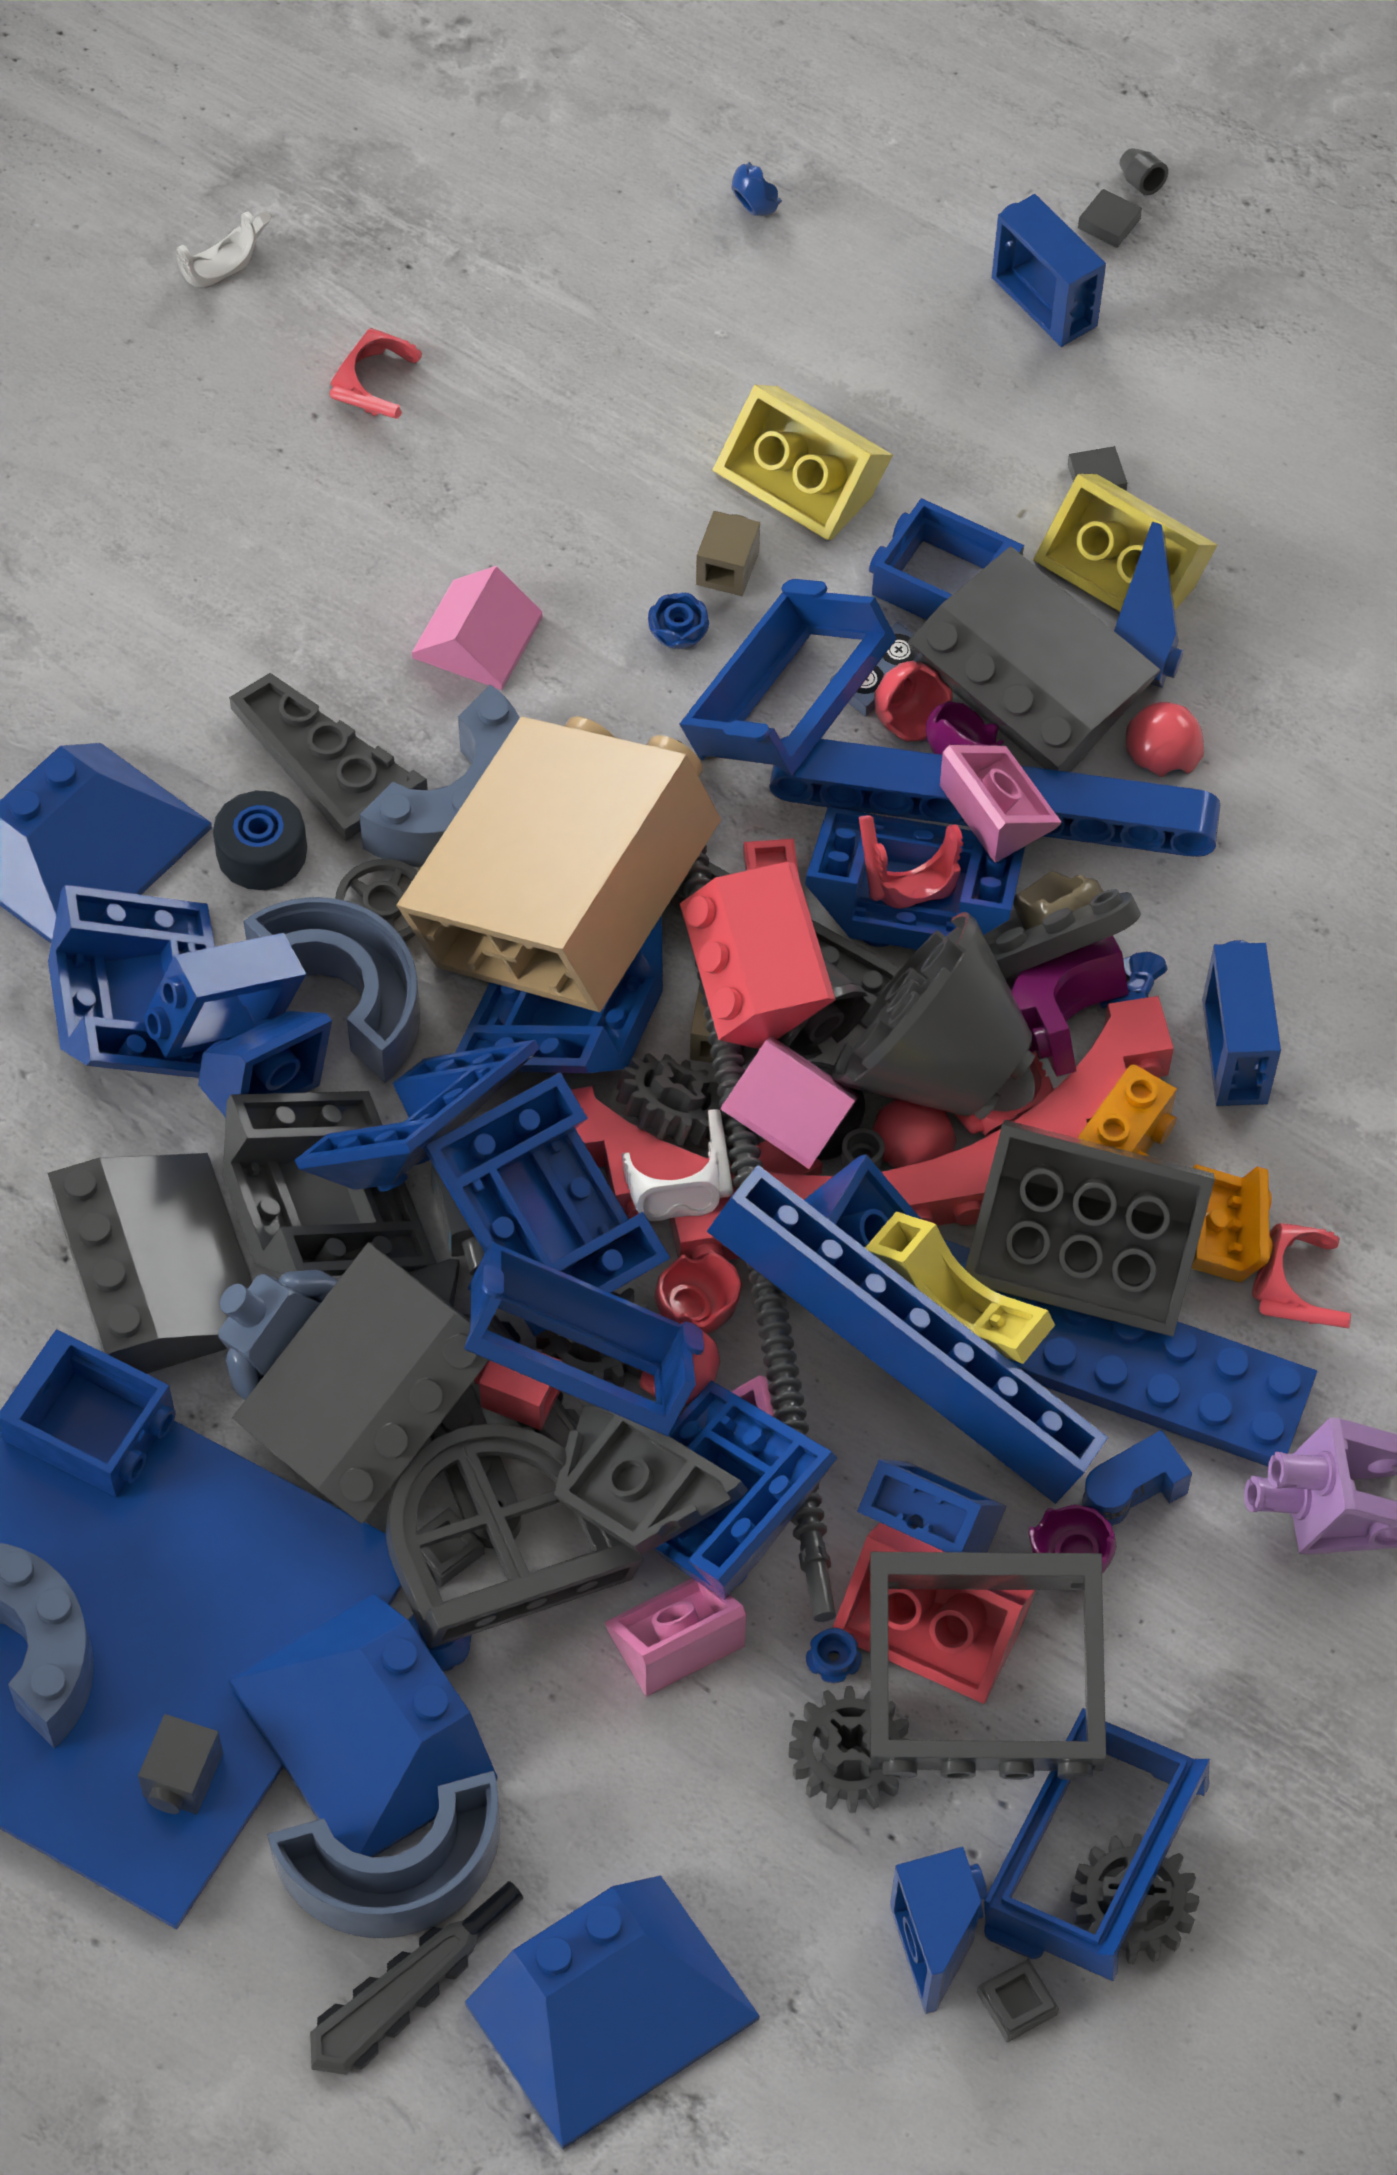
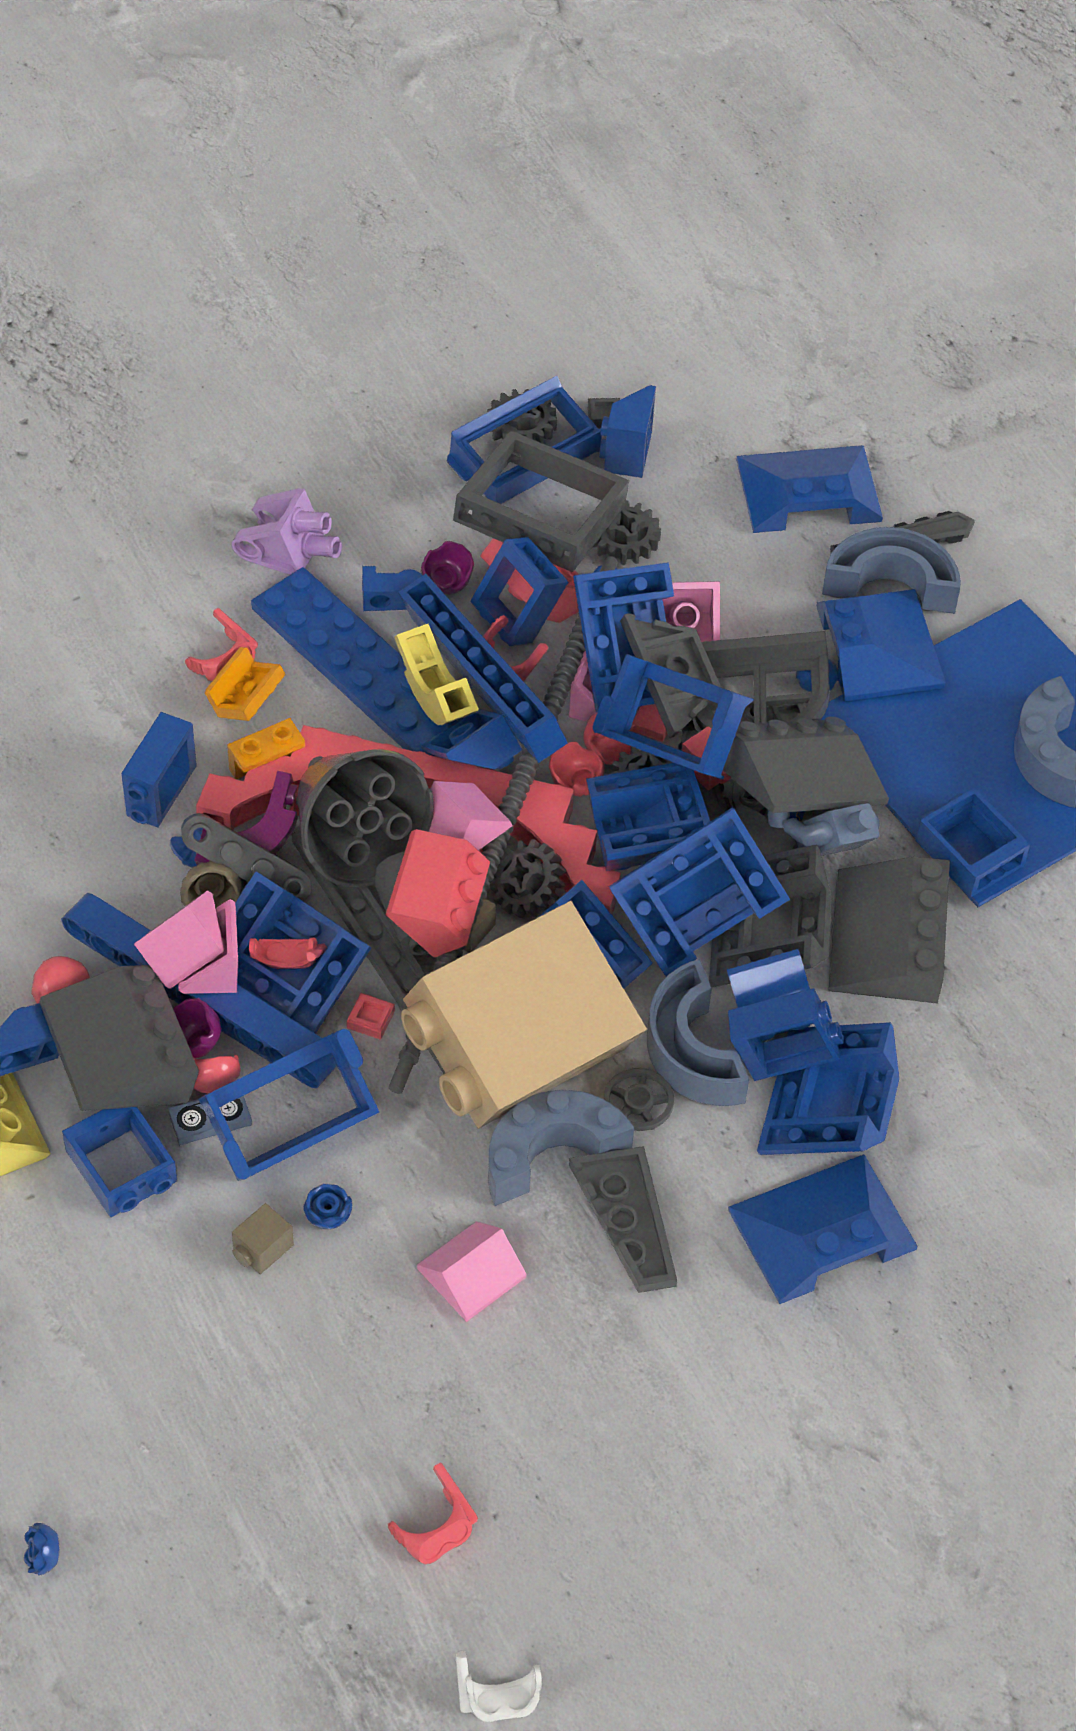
camera: 155 degrees left, 5 degrees down
(180, 1765) = (990, 651): dark grey brick -> none
(260, 840) = (703, 1167): black wheel -> none
(686, 1196) = (548, 797): white helmet -> none
(801, 461) = (161, 1289): light yellow slope -> none
(901, 1419) = (525, 668): none -> coral helmet
(1041, 781) = (183, 941): none -> bright pink slope
(1089, 1227) = (330, 692): dark grey slope -> none

